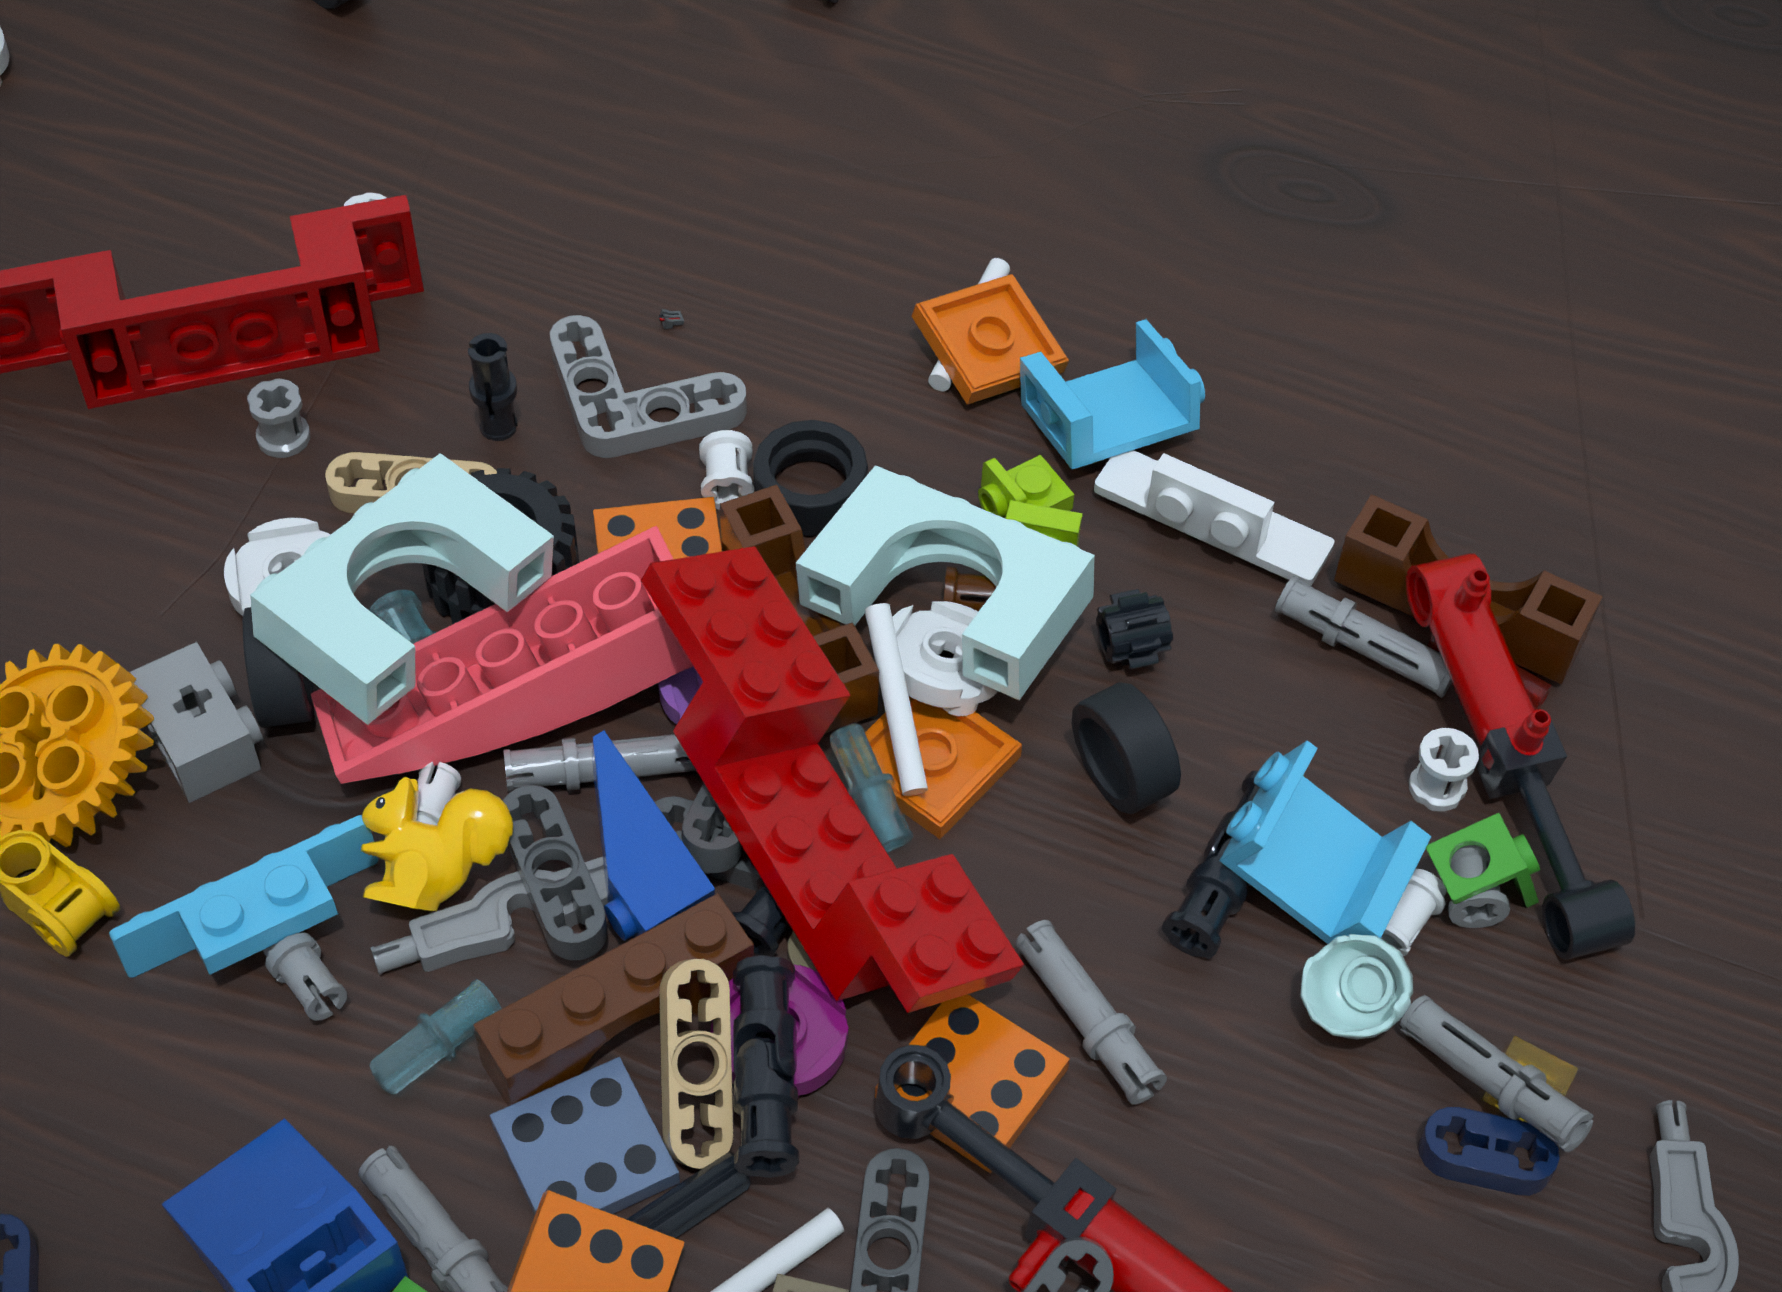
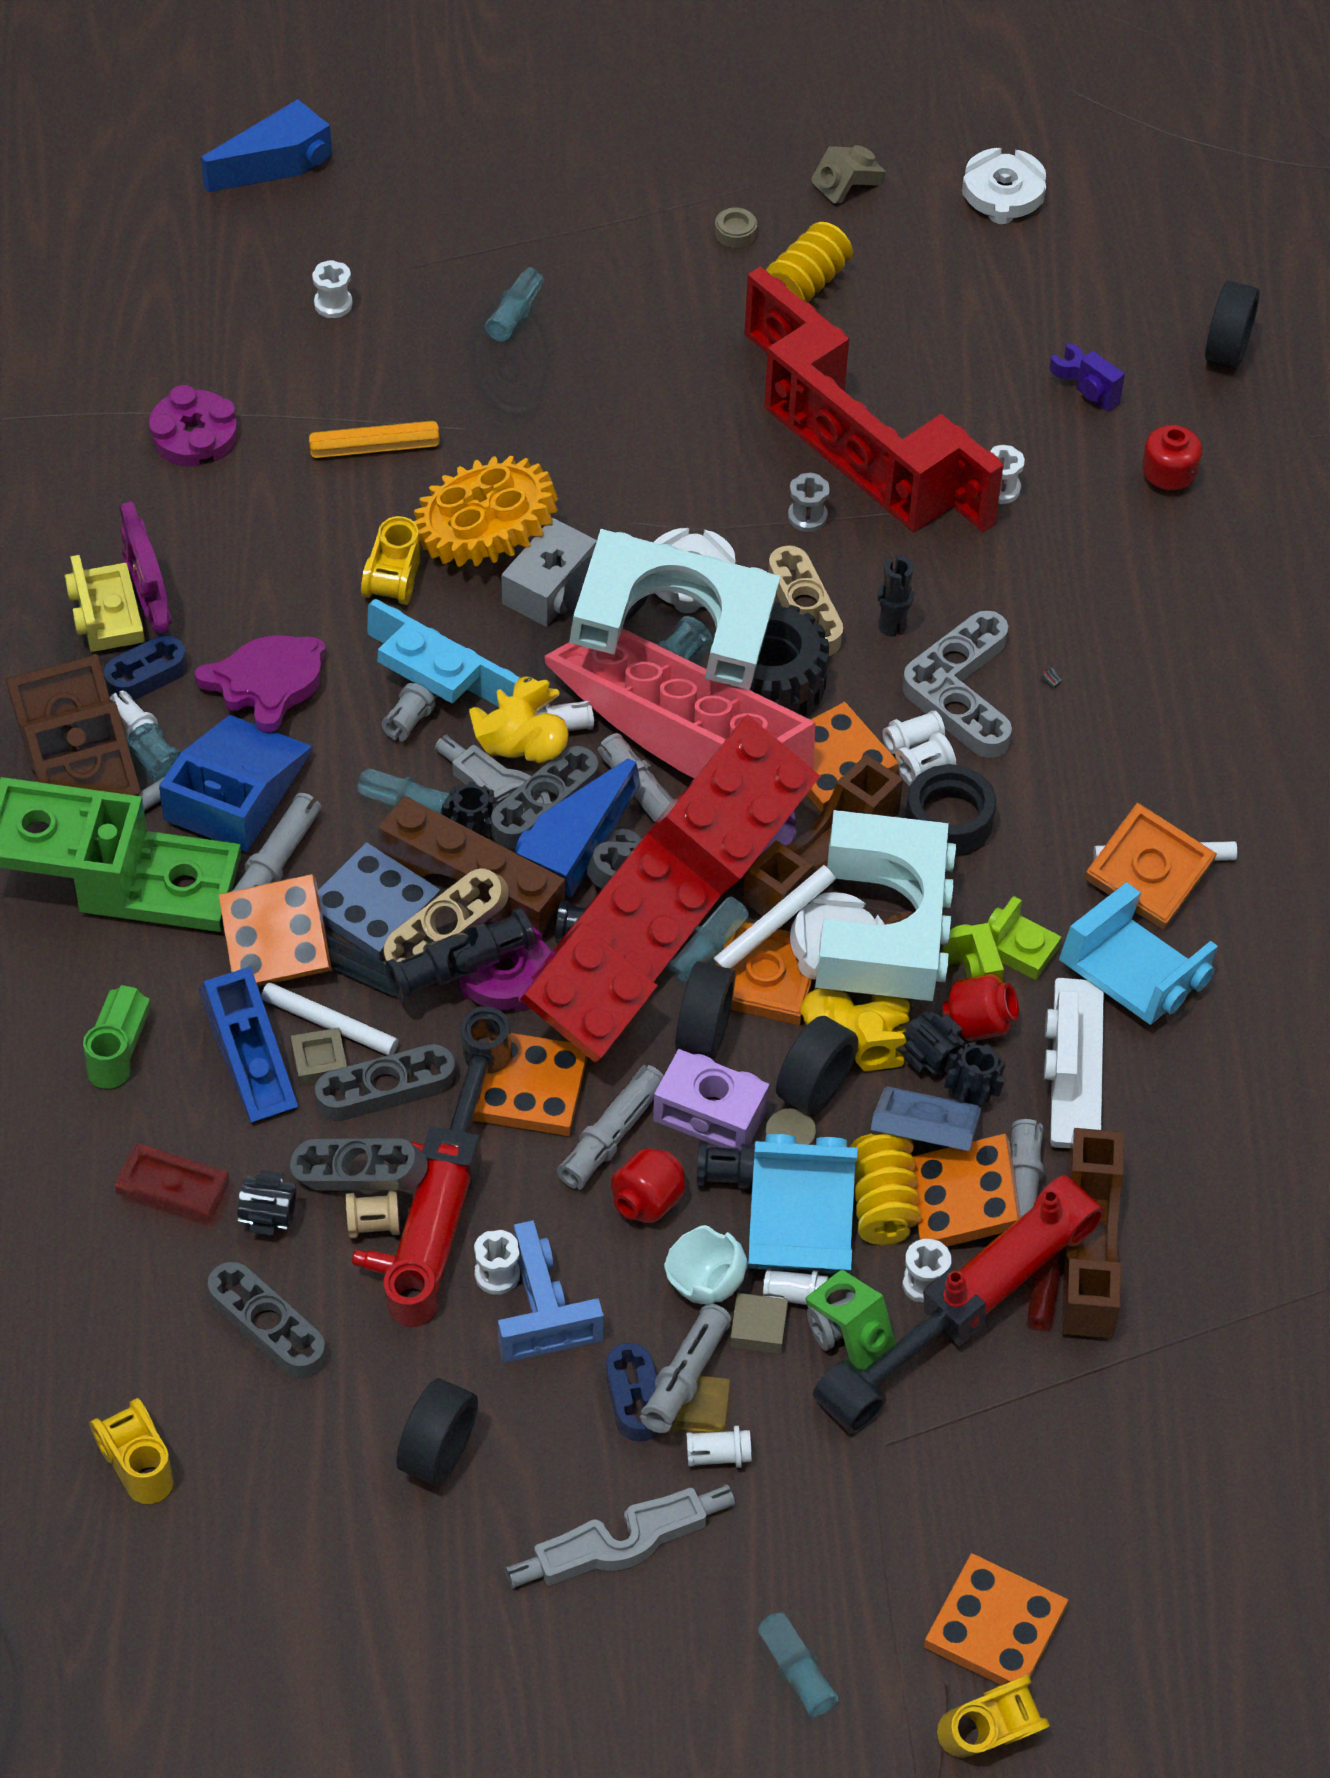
camera: 65 degrees right, 0 degrees up
(124, 1124) = (266, 675): none -> magenta tile
(296, 97) = (1096, 376): none -> dark purple plate
(459, 82) = (1172, 457): none -> red head
(518, 949) = (471, 807): none -> black gear
(676, 473) = (912, 732): none -> white pin
(988, 828) = (705, 1009): none -> black tyre
(1069, 678) = (872, 1022): none -> yellow animal
(1097, 916) = (726, 1122): none -> lavender brick
(1120, 557) = (982, 1007): none -> red head
(1180, 827) = (793, 1123): none -> dark tan tile
(1198, 608) = (974, 1074): none -> black gear
(1205, 1004) = (648, 1185): none -> red head
(1241, 1247) = (497, 1262): none -> white bush
(1246, 676) = (926, 1118): none -> sand blue tile
(1323, 1197) = (551, 1323): none -> medium blue bracket
(1333, 765) = (885, 1188): none -> yellow piece
(1352, 686) = (966, 1191): none -> orange tile
(1441, 970) = (758, 1323): none -> dark tan tile
(1609, 1077) = (719, 1447): none -> white pin

